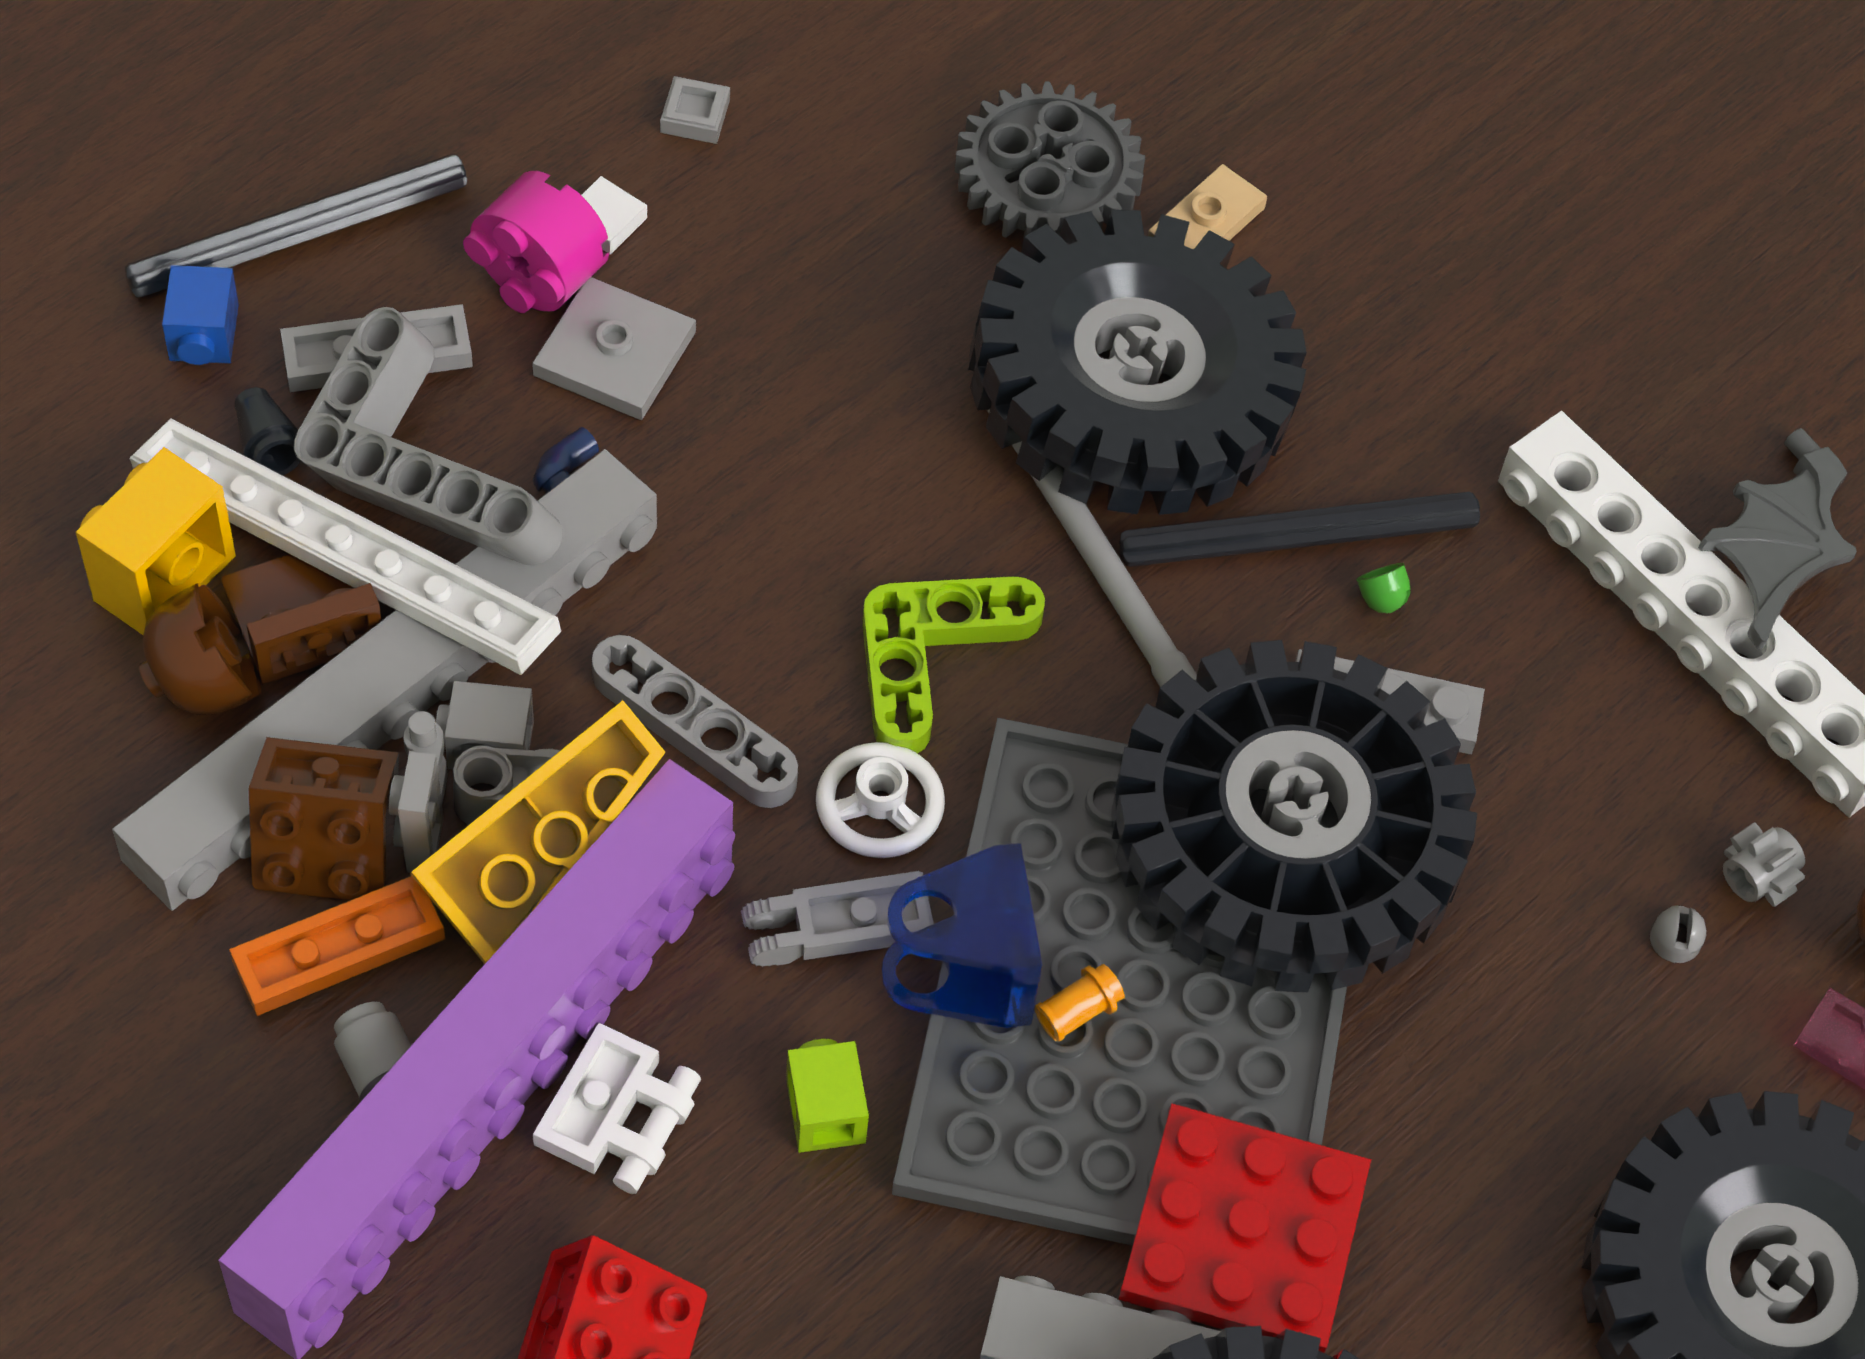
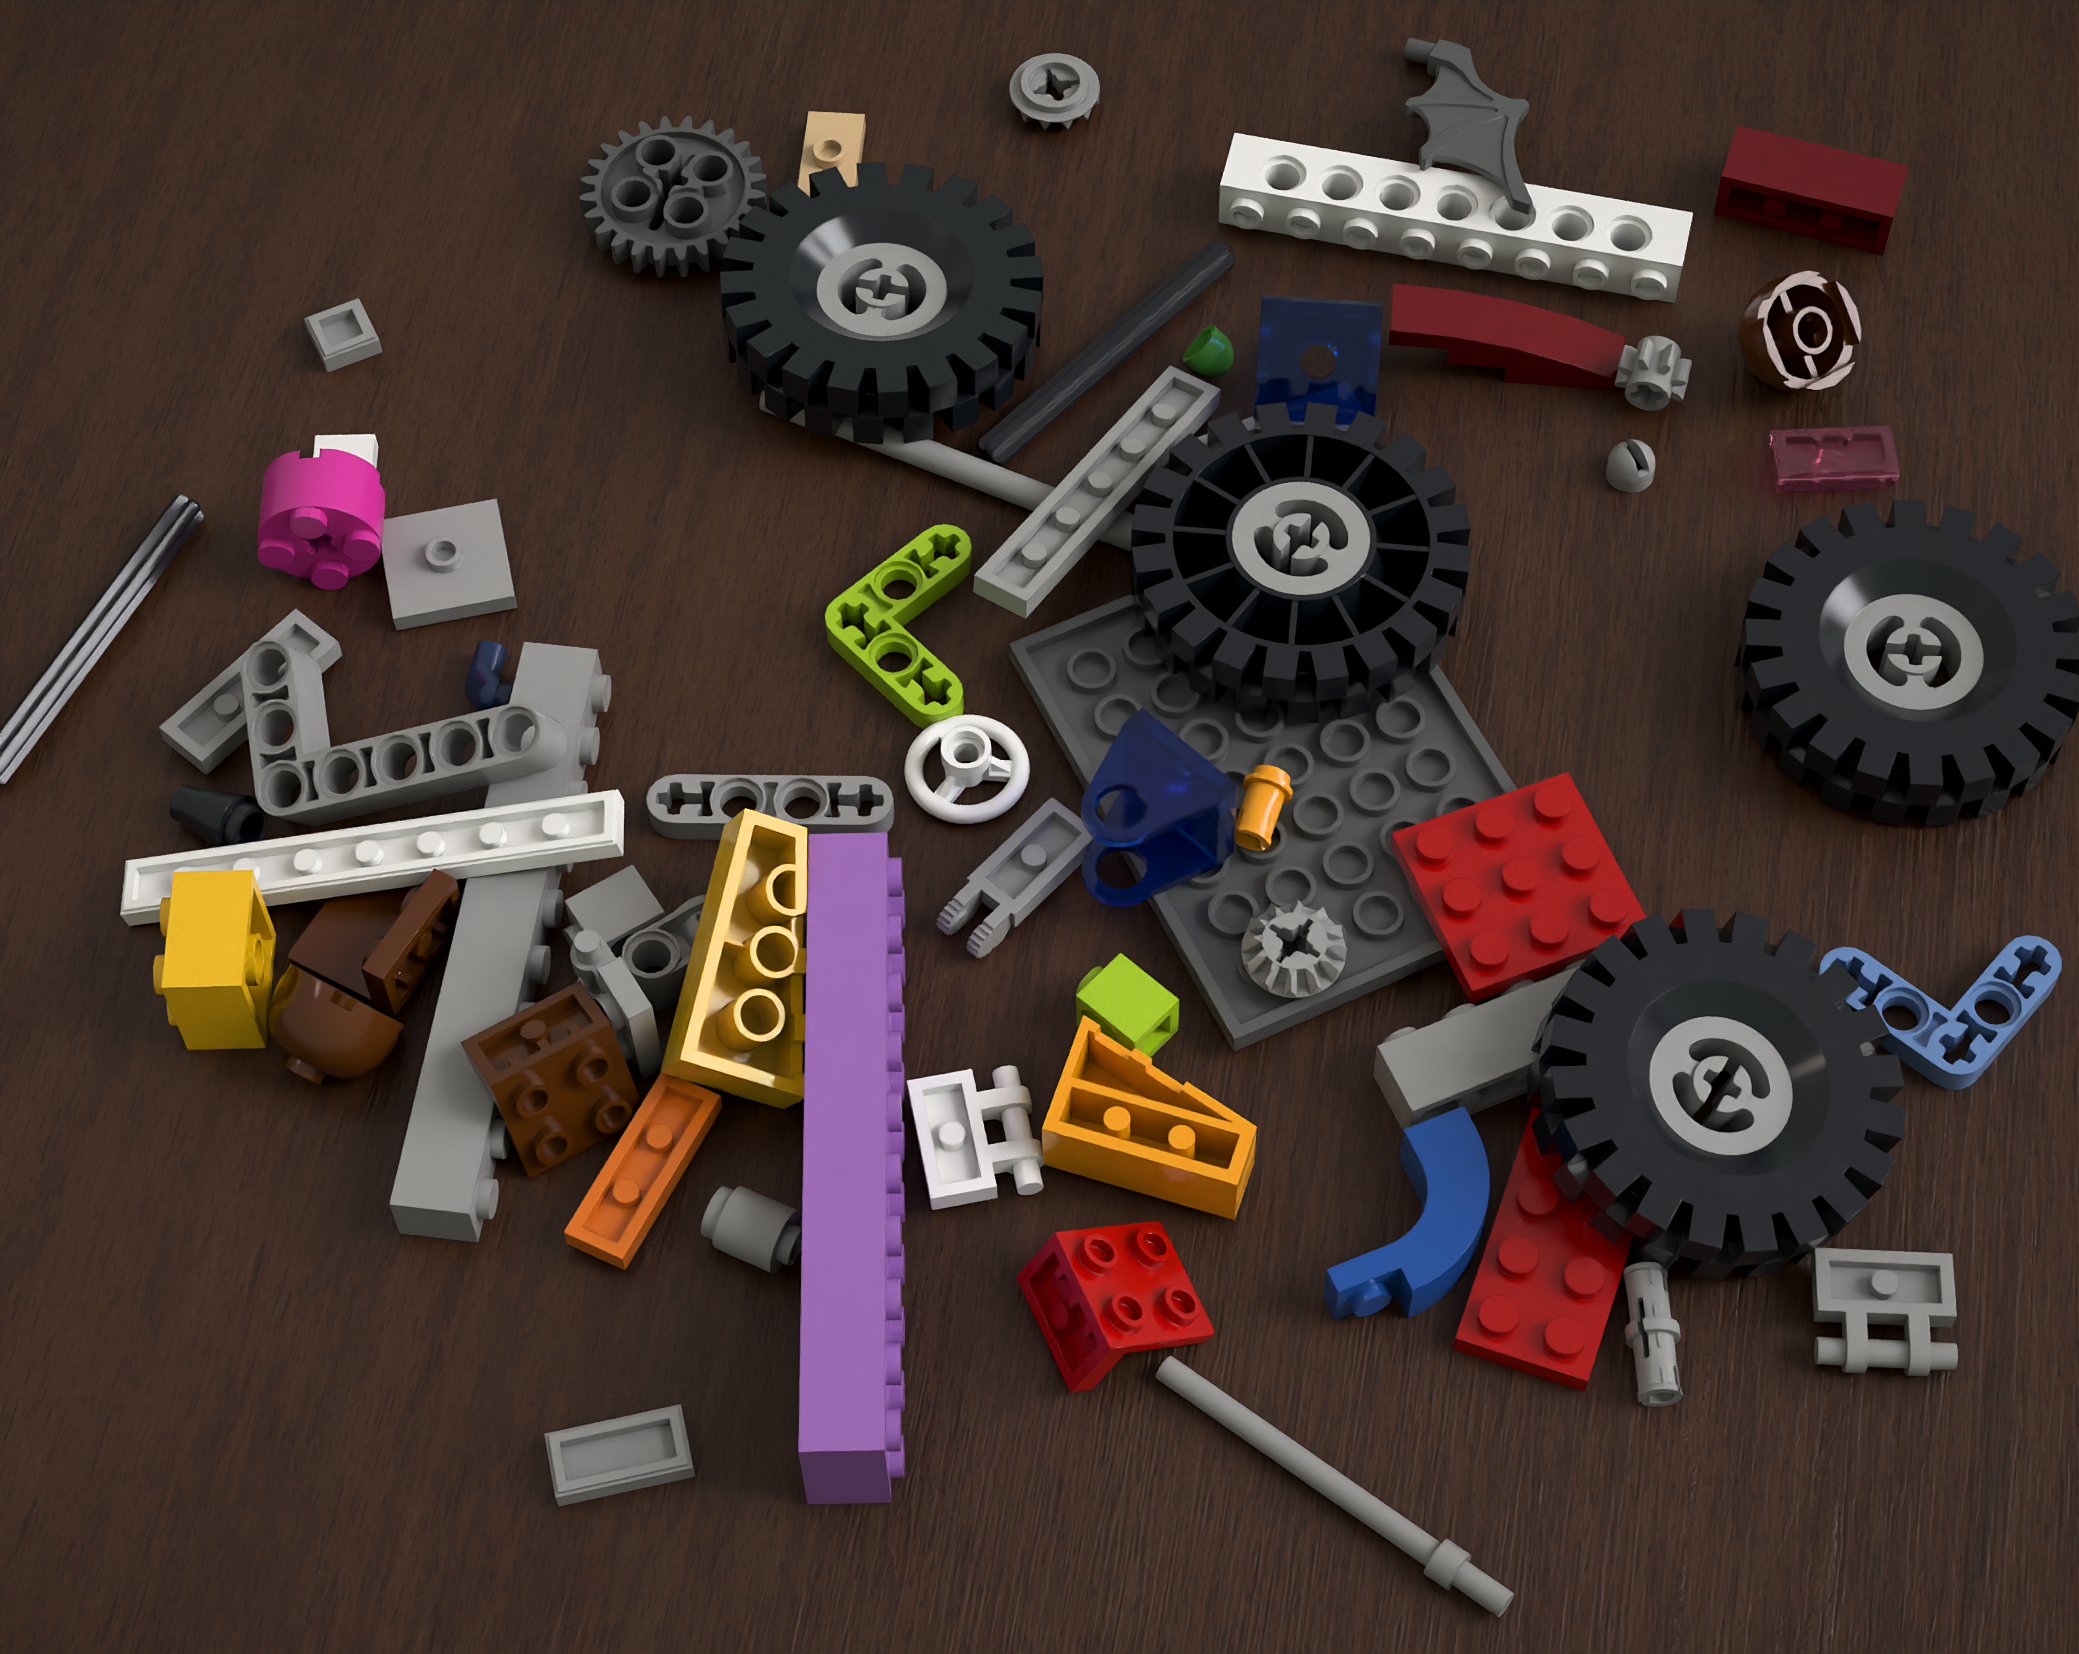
camera: 30 degrees left, 0 degrees up
(124, 1162) = (619, 1455): none -> light grey tile
(200, 314) = (78, 760): blue brick -> none
(747, 1202) = (1144, 1130): none -> light orange wedge
(988, 1166) = (1300, 973): none -> light grey gear
(1173, 638) = (1095, 492): none -> light grey plate
(1428, 263) = (1065, 73): none -> light grey gear
(1503, 660) = (1345, 327): none -> clear blue hose
(1656, 740) = (1507, 334): none -> dark red slope

